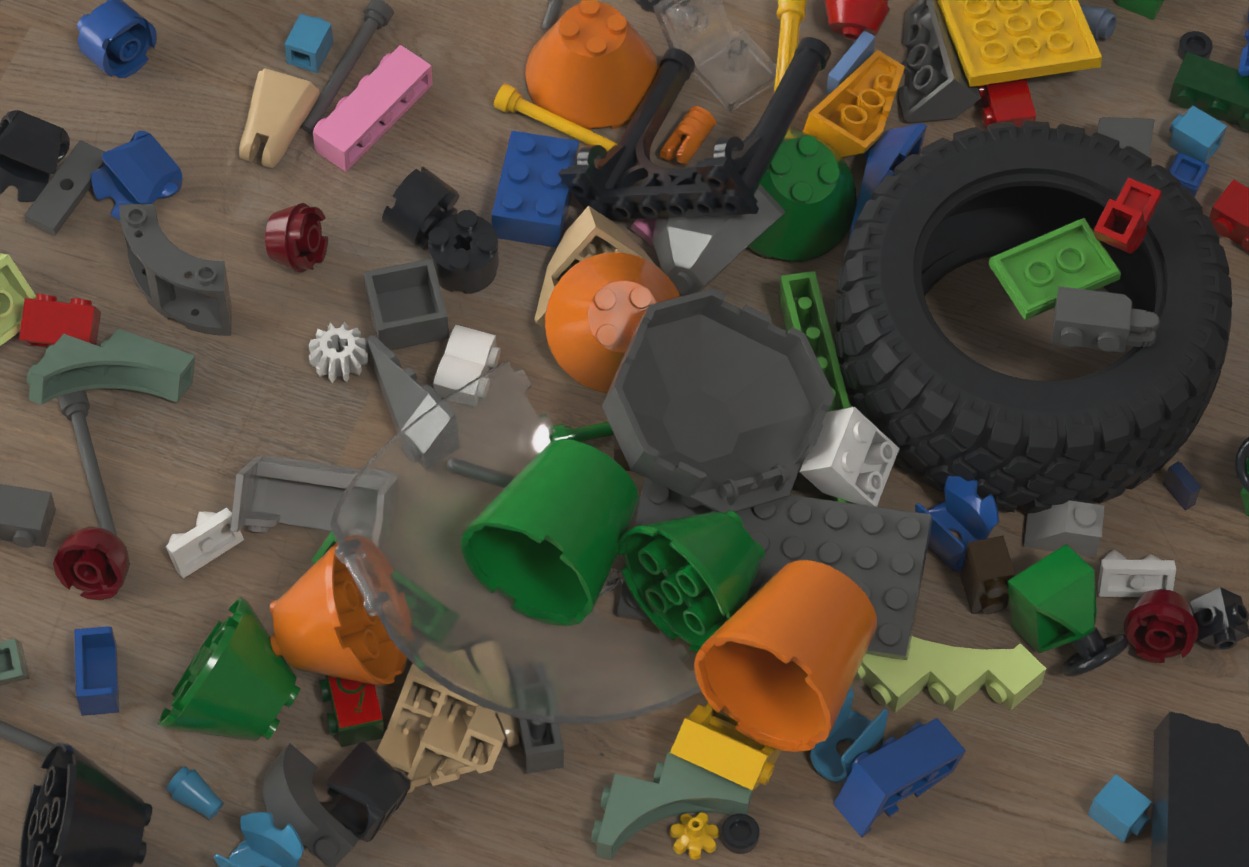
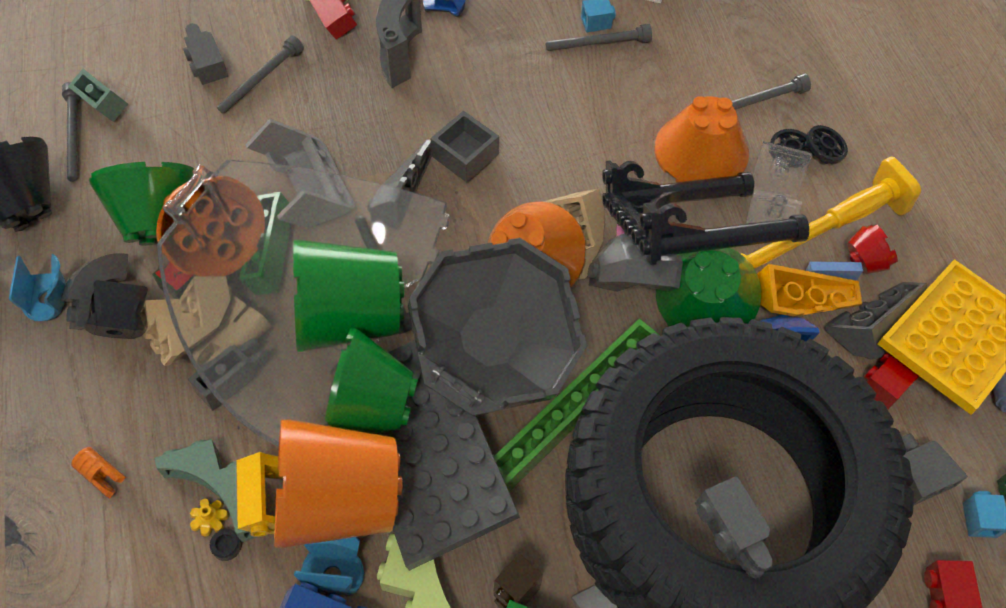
camera: 55 degrees right, 0 degrees up
(92, 562) = (197, 102): dark red cylinder -> none
(96, 671) = (129, 142): blue panel -> none
(119, 363) = (328, 46): sand green arch -> none
(193, 792) = (79, 231): dark azure cone -> none
(203, 543) = (233, 143): white tile -> none
(275, 115) = (539, 26): tan piece -> none
(296, 237) = (467, 74): dark red cone -> none
(338, 352) = (411, 134): white gear -> none
(372, 107) = (582, 63): bright pink brick -> none
(419, 206) = (534, 116): black brick -> none
(464, 252) = (524, 154): black brick -> none
(465, 358) = (458, 194): white brick -> none
(510, 100) = (646, 119): yellow piece -> none
(531, 194) = (583, 161): blue brick -> none
(688, 135) = (706, 217): orange hinge -> none
(850, 458) = (530, 437): white slope -> none
(961, 513) = (554, 531): blue piece -> none
(1059, 258) = (767, 469): bright green tile -> none
(1126, 219) = (835, 492): red brick -> none
(1189, 172) = (951, 528): blue tile -> none

